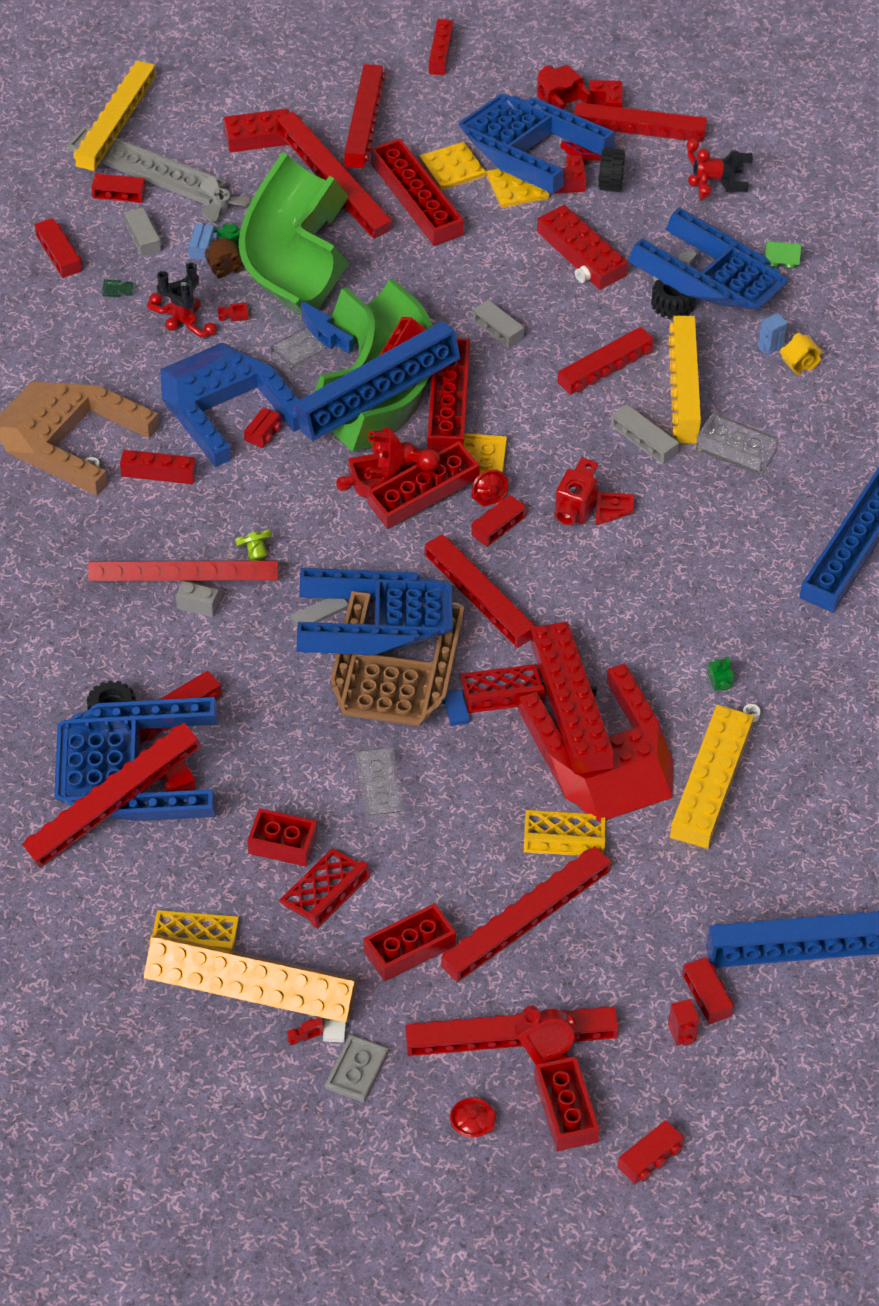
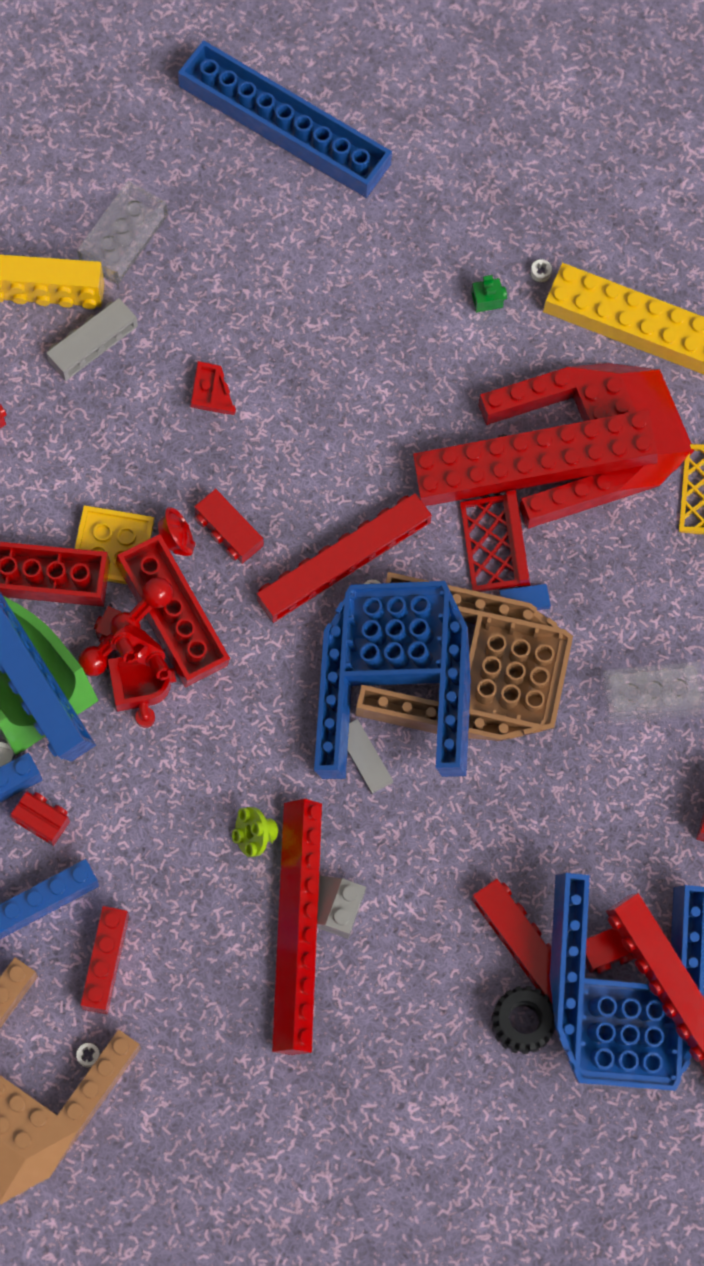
camera: 90 degrees left, 20 degrees up
(577, 505) = (205, 424): red piece -> none

